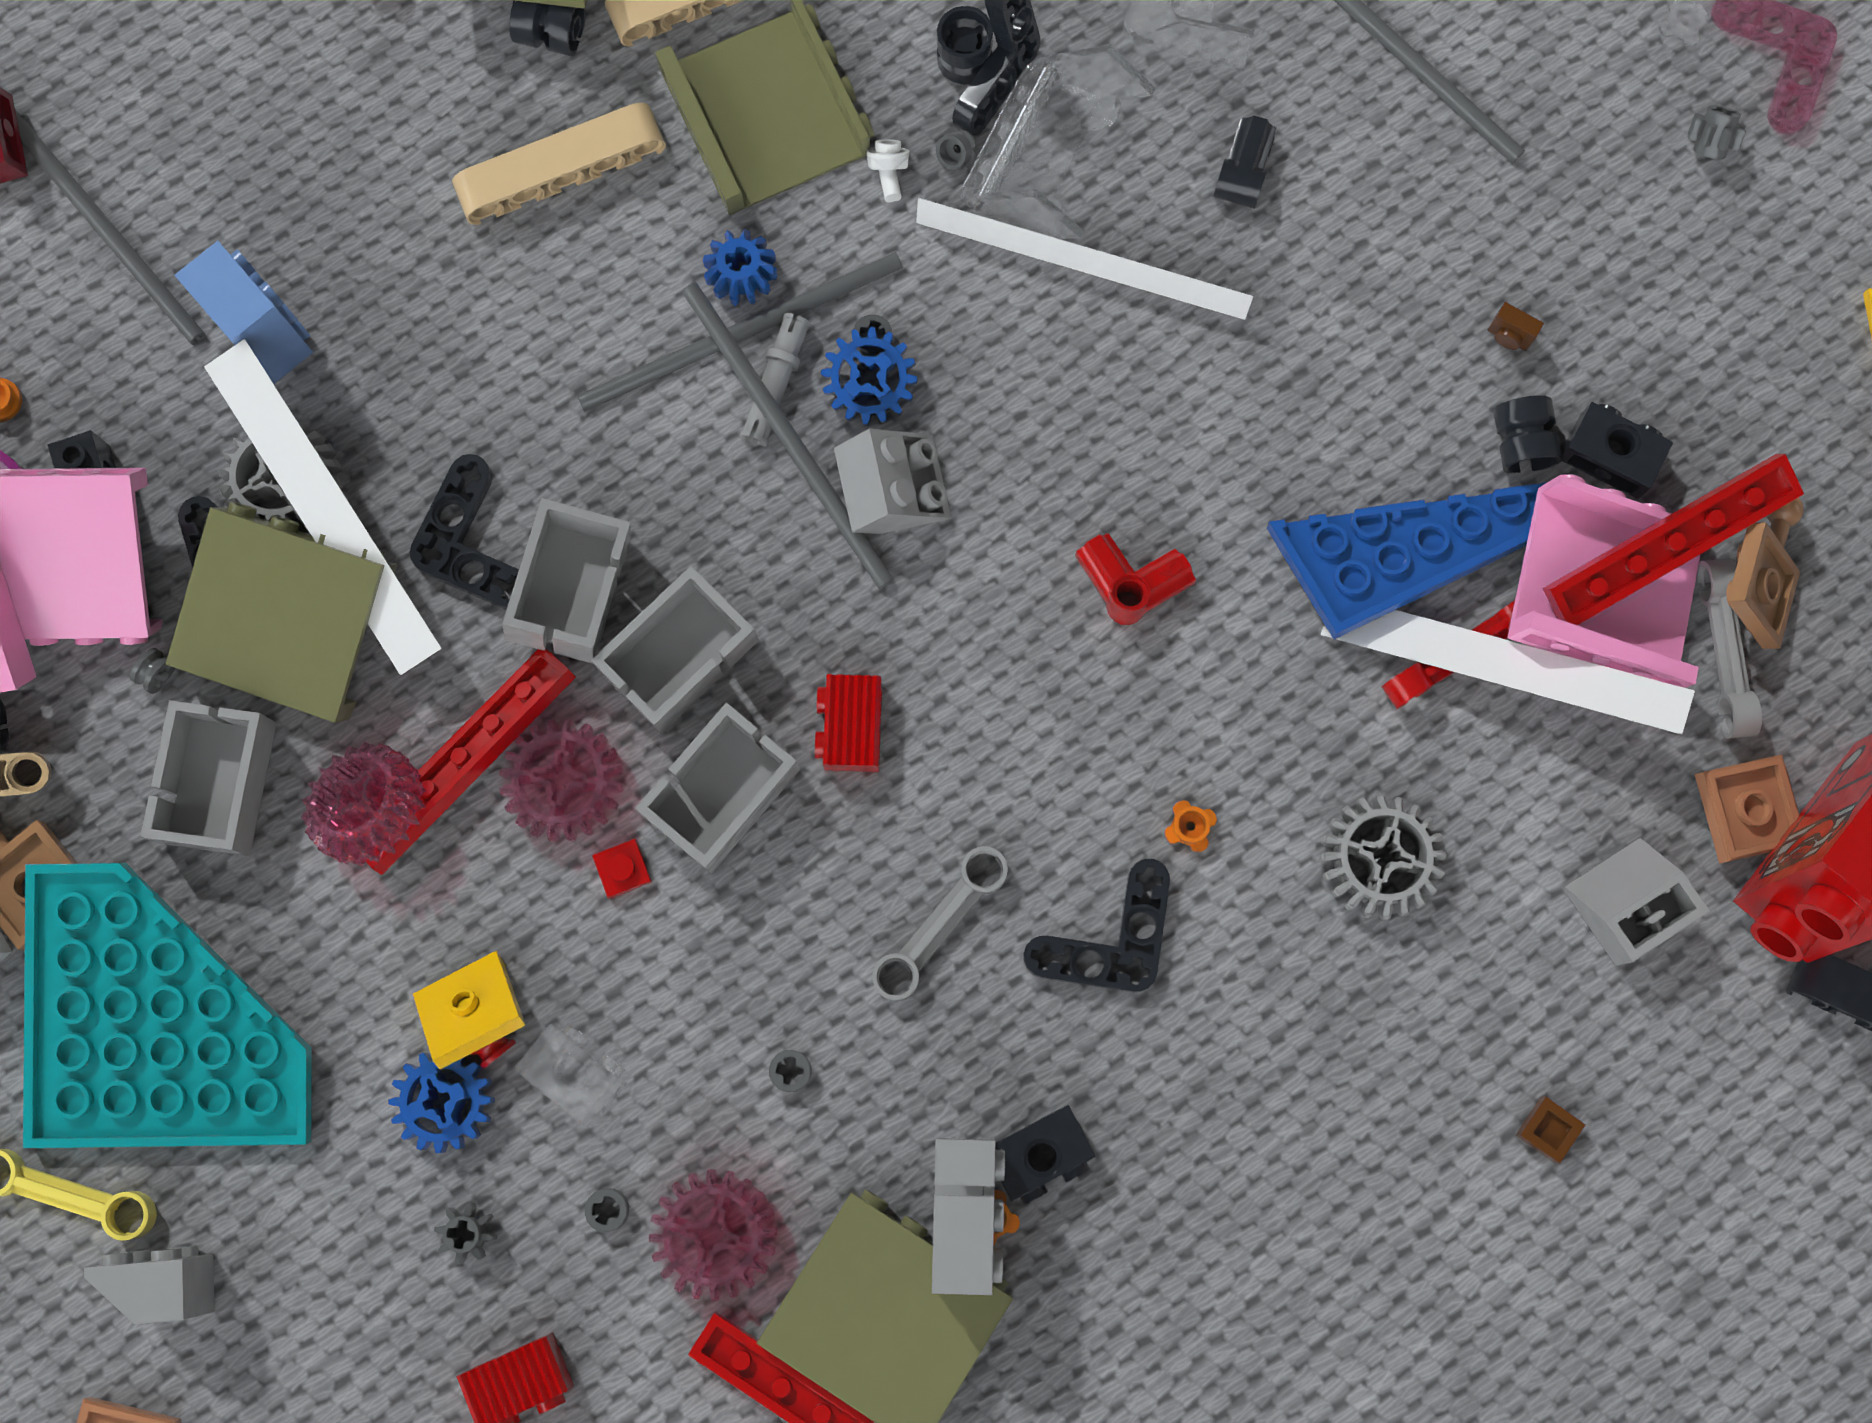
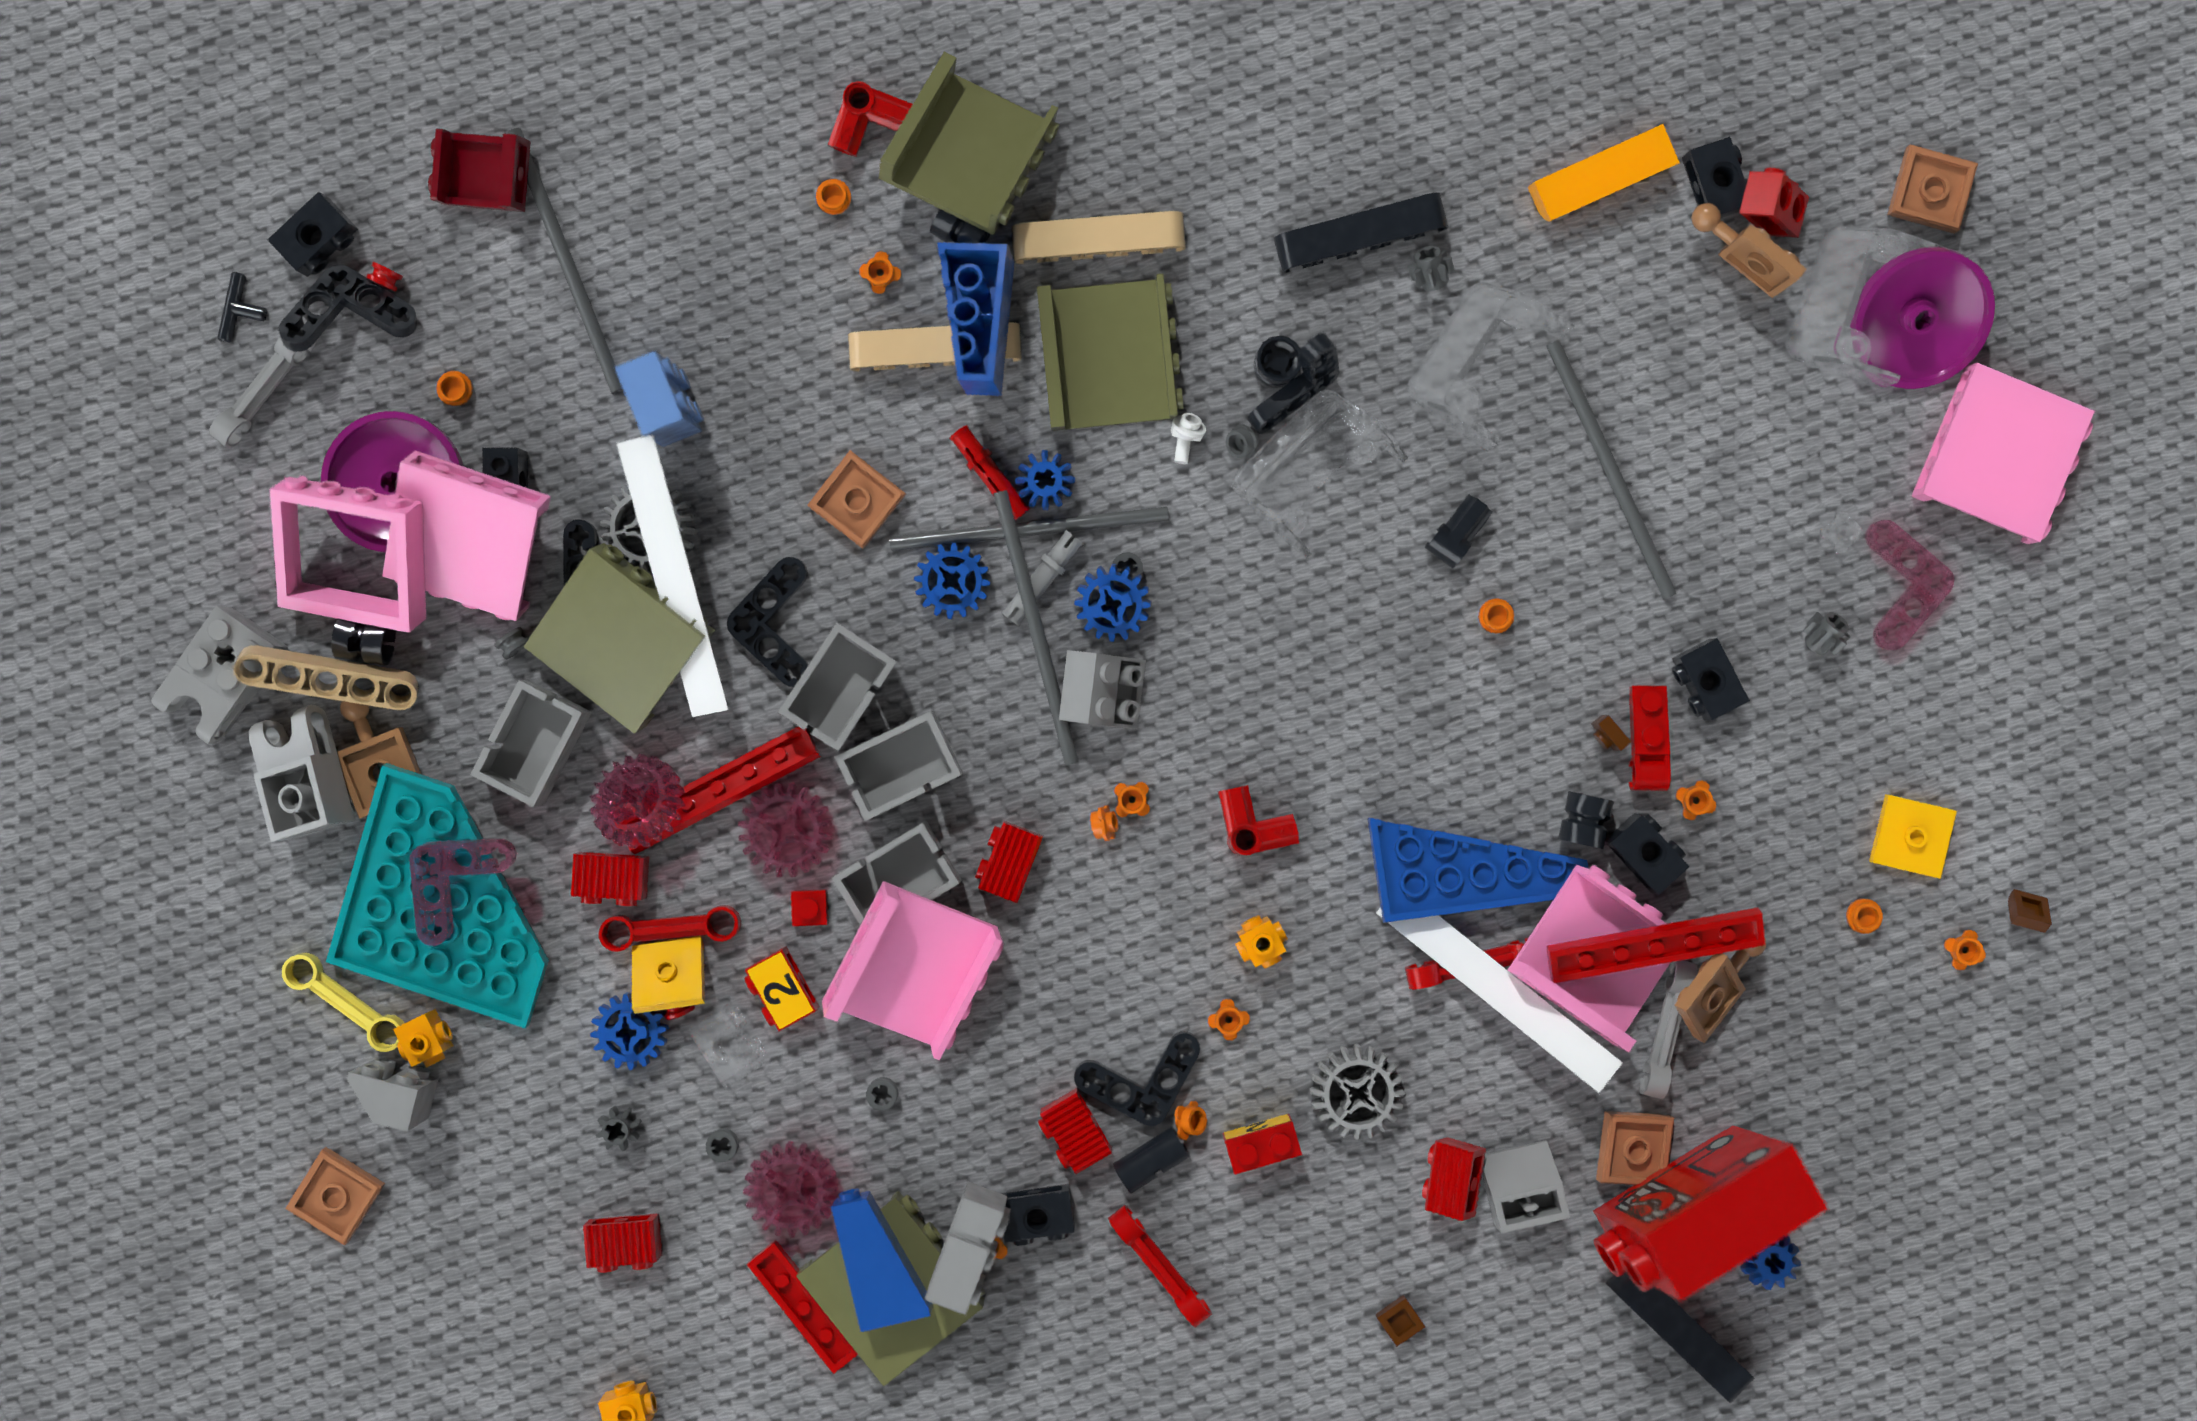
camera: 15 degrees right, 10 degrees up
(138, 965) = (447, 866): none -> clear pink beam
(177, 1202) = (424, 1039): none -> light orange brick
(357, 914) = (609, 877): none -> red brick
(387, 42) = (833, 196): none -> orange plate
(452, 954) = (669, 928): none -> red piece
(468, 94) = (880, 262): none -> orange plate
(523, 364) = (856, 499): none -> nougat plate
(593, 83) = (978, 307): none -> blue wedge
(617, 979) = (781, 989): none -> brick
(656, 273) = (986, 468): none -> red pin
(677, 399) = (964, 569): none -> blue gear
(775, 888) = (913, 967): none -> bright pink panel
(859, 1291) = (877, 1268): none -> blue slope
(940, 923) = (1023, 1027): light grey piece -> none
(951, 638) = (1104, 823): none -> orange plate
(979, 589) = (1139, 806): none -> orange plate
(1051, 1031) = (1074, 1131): none -> red brick
(1083, 259) = (1305, 565): white sticker -> none
(1158, 1032) = (1145, 1161): none -> black pin
(1189, 967) = (1190, 1120): none -> orange plate
(1192, 728) = (1261, 928): none -> light orange brick
(1221, 1166) = (1184, 1295): none -> red piece
(1290, 962) = (1262, 1144): none -> red brick
(1326, 244) = (1496, 615): none -> orange plate
(1545, 920) = (1454, 1178): none -> red brick
(1567, 323) = (1649, 738): none -> red plate
(1603, 207) = (1727, 689): none -> black brick
(1657, 366) = (1705, 805): none -> orange plate

